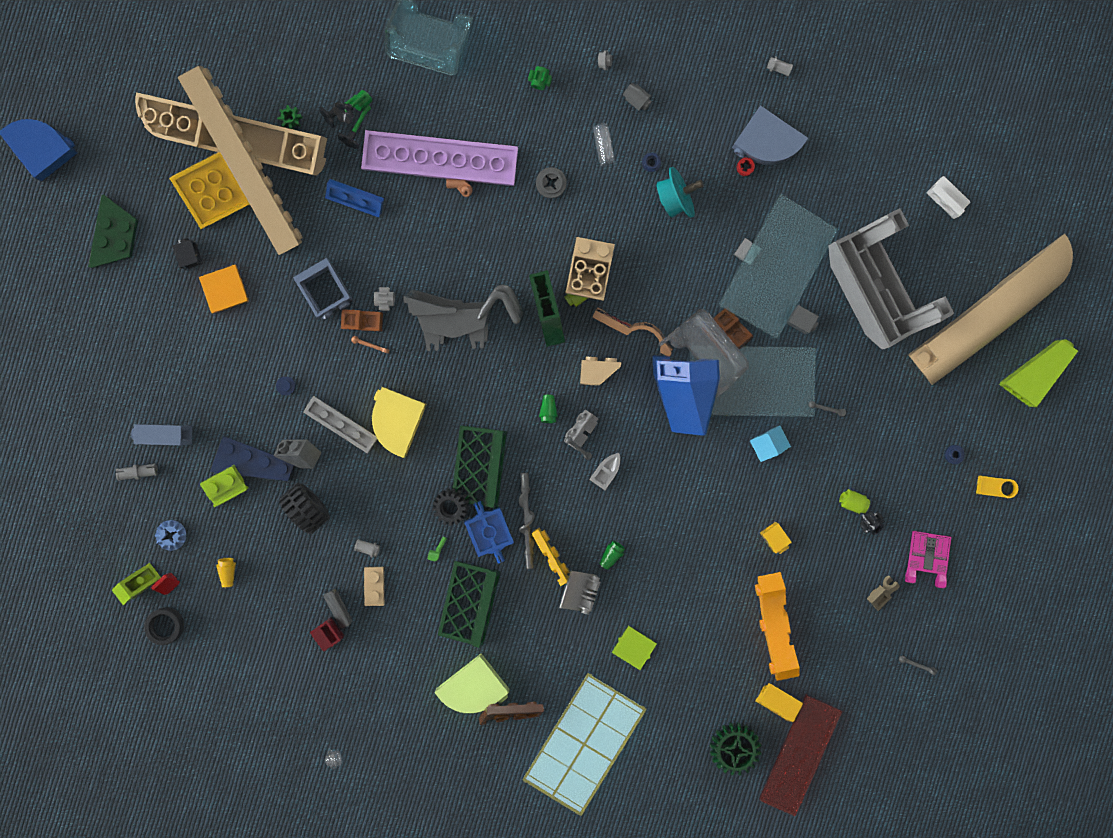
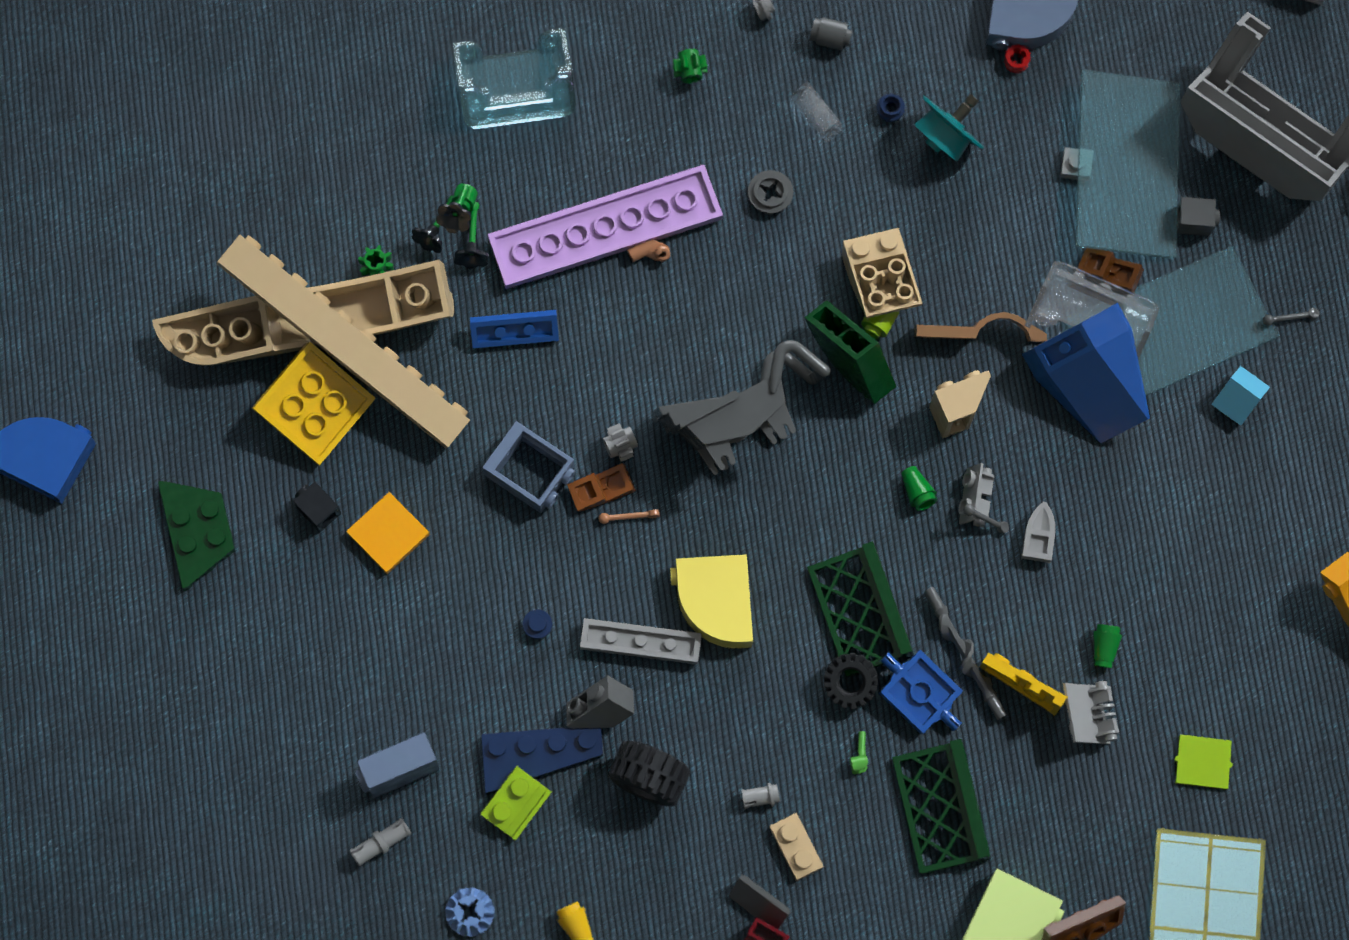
camera: 25 degrees left, 15 degrees down
(776, 538) = (1316, 517): yellow brick -> none

